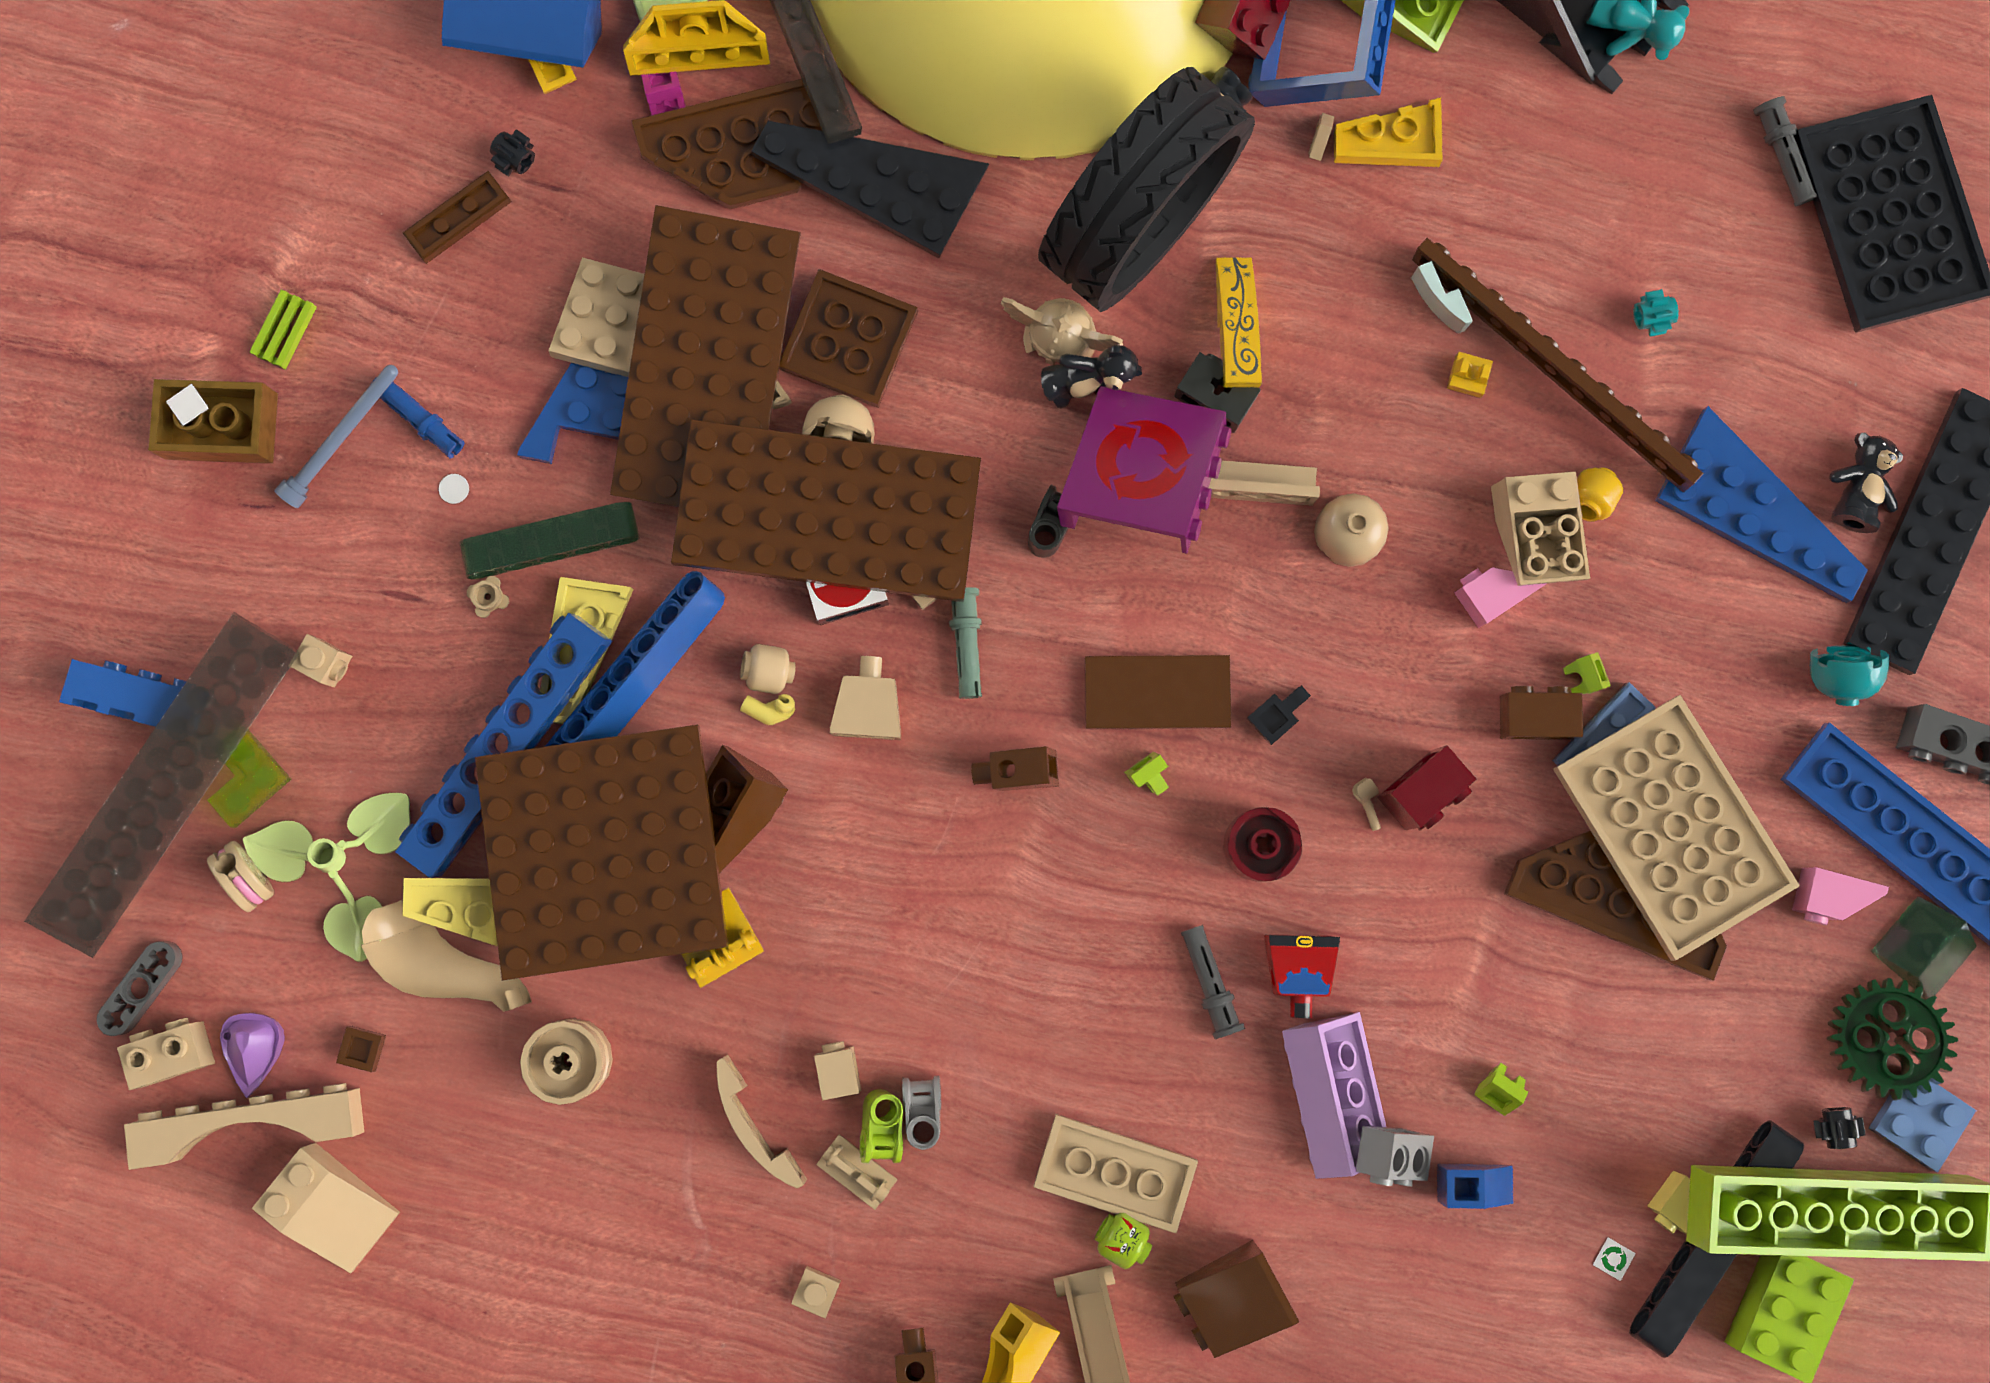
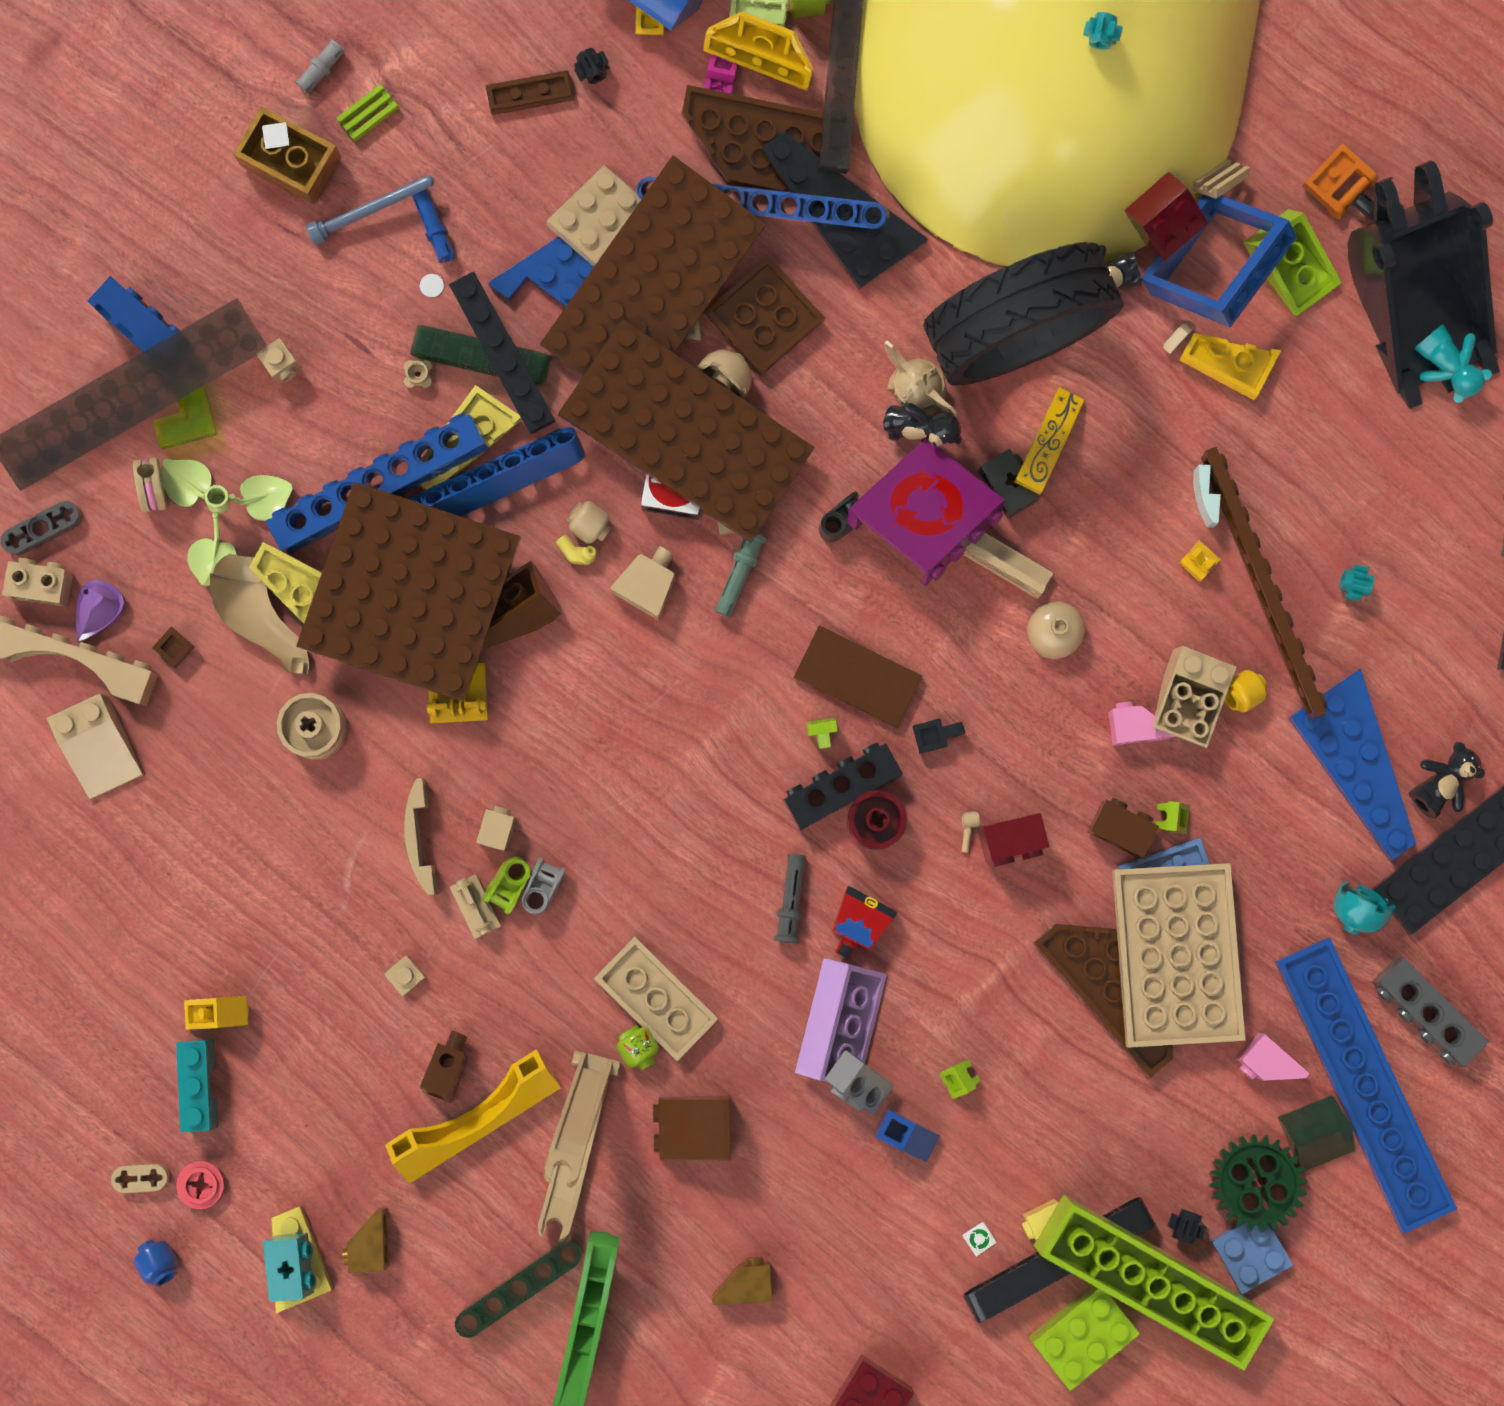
camera: 25 degrees right, 0 degrees up
(202, 302) = (320, 66): none -> light grey pin
(572, 525) = (502, 353): none -> black plate
(832, 190) = (804, 205): none -> blue beam
(1033, 769) = (741, 684): reddish brown torso -> none
(1243, 783) = (885, 771): none -> black brick

